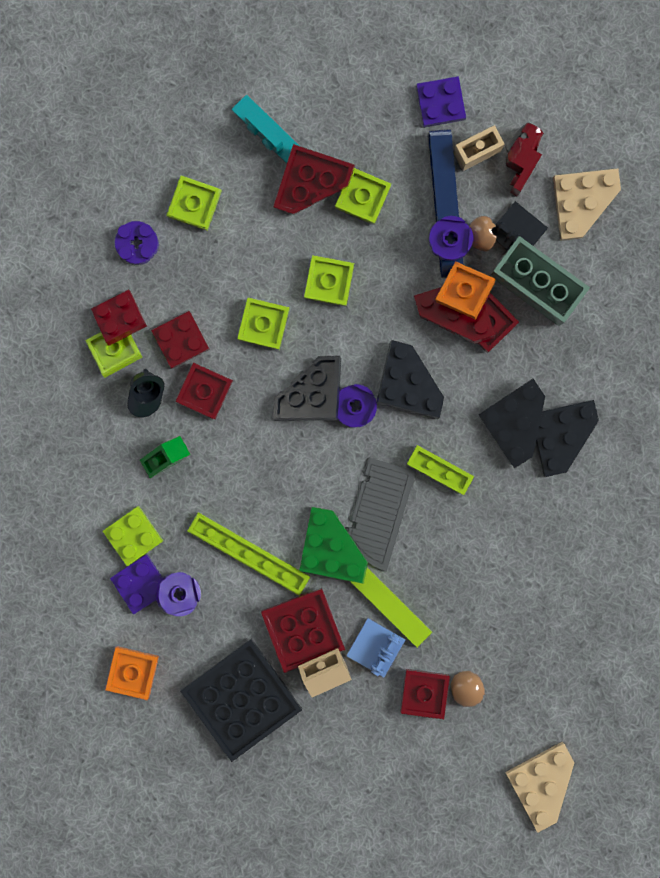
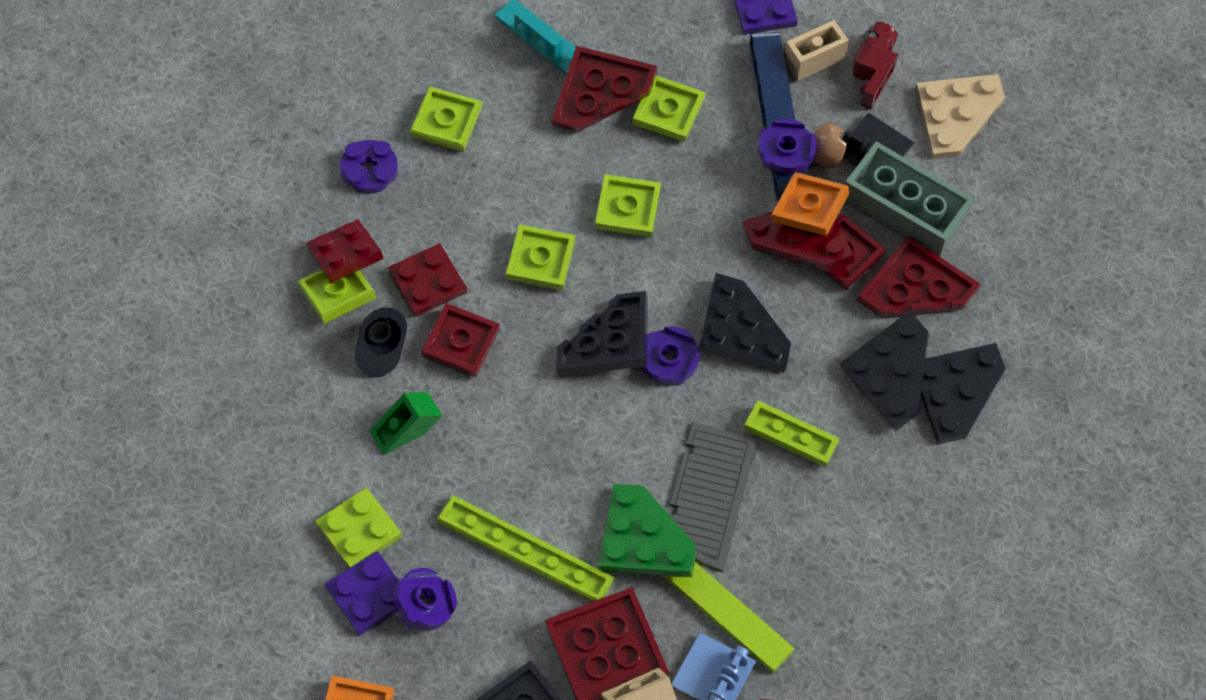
camera: 10 degrees left, 25 degrees down
(540, 349) = (917, 283): none -> dark red plate

